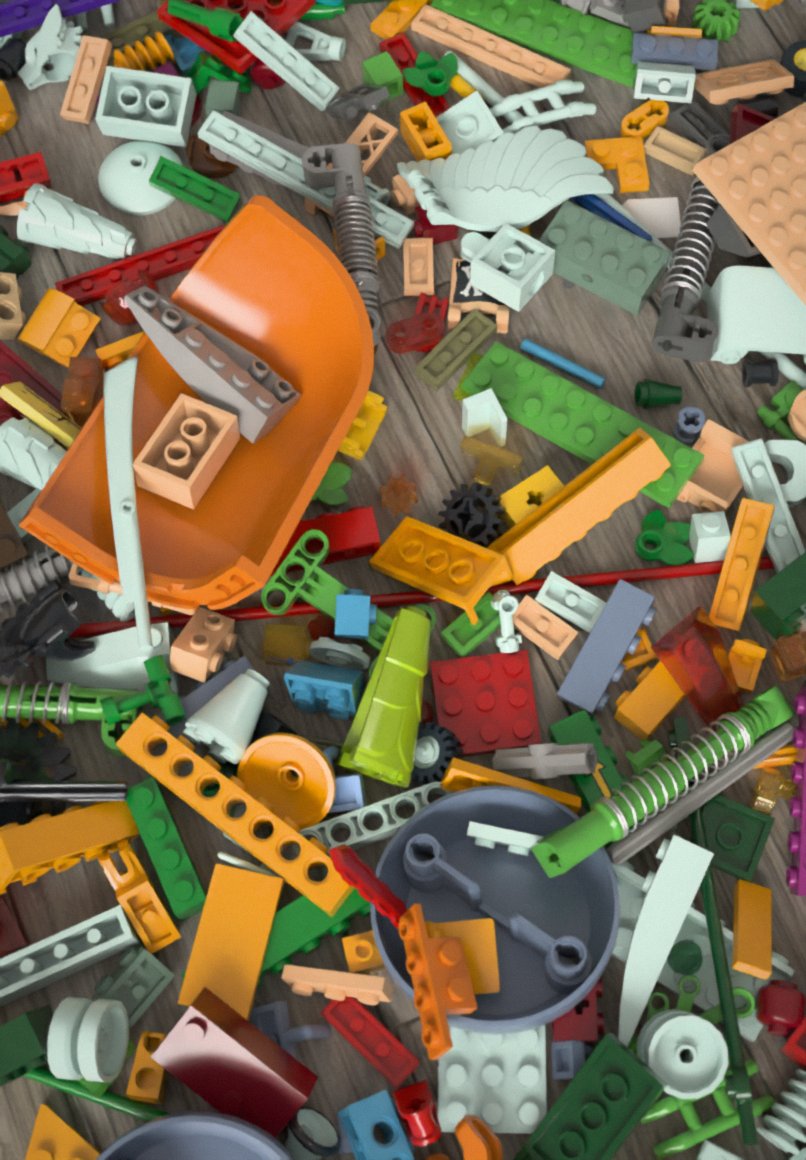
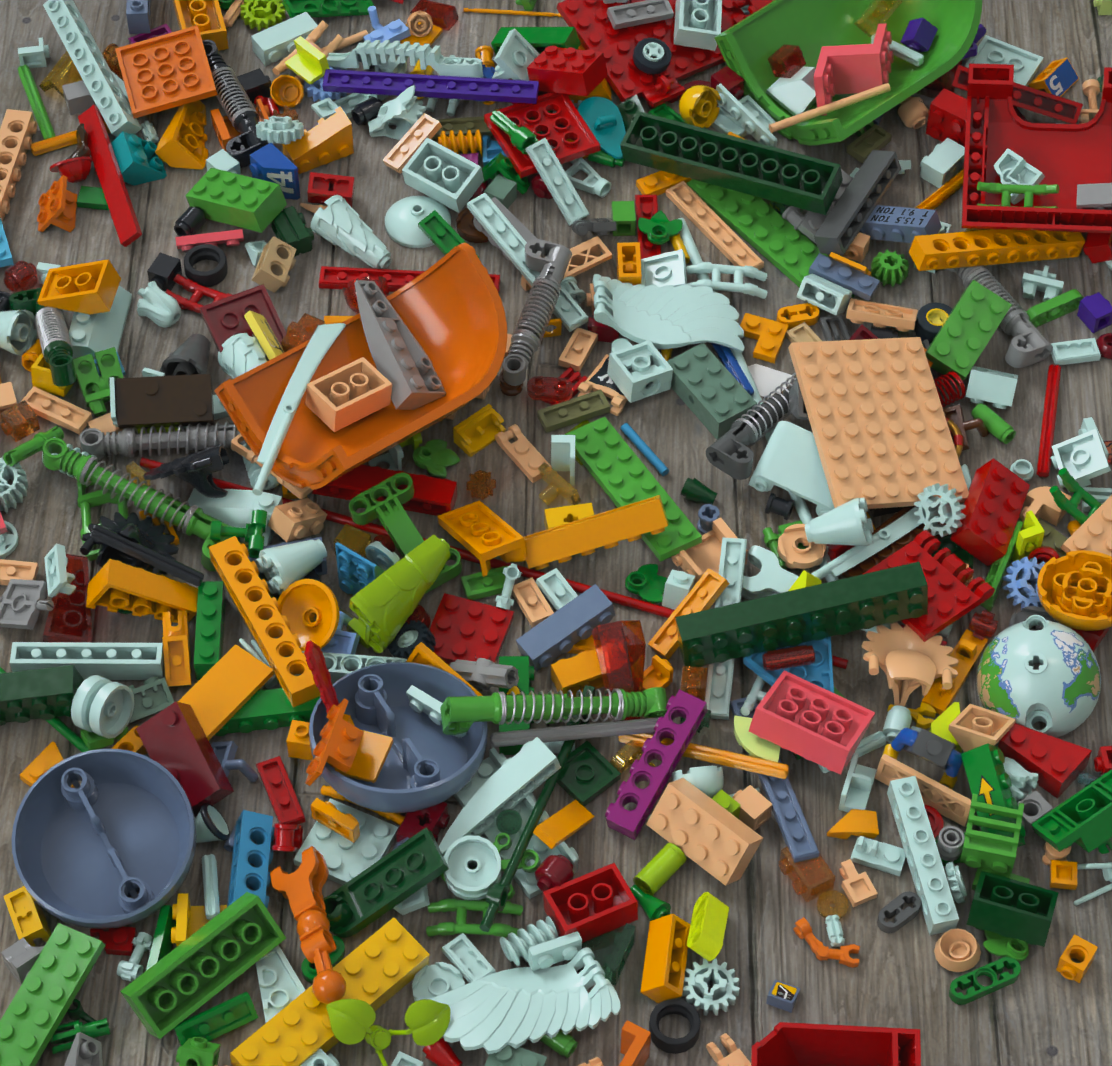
camera: 20 degrees right, 15 degrees down
(58, 328) = (308, 294): light orange brick -> none
(337, 984) = (275, 746): light nougat plate -> none
(354, 615) = (403, 534): dark azure brick -> none
(423, 429) = (521, 452): none -> light nougat plate
(473, 502) = (524, 513): black gear -> none
(486, 1059) = (337, 821): none -> light orange plate

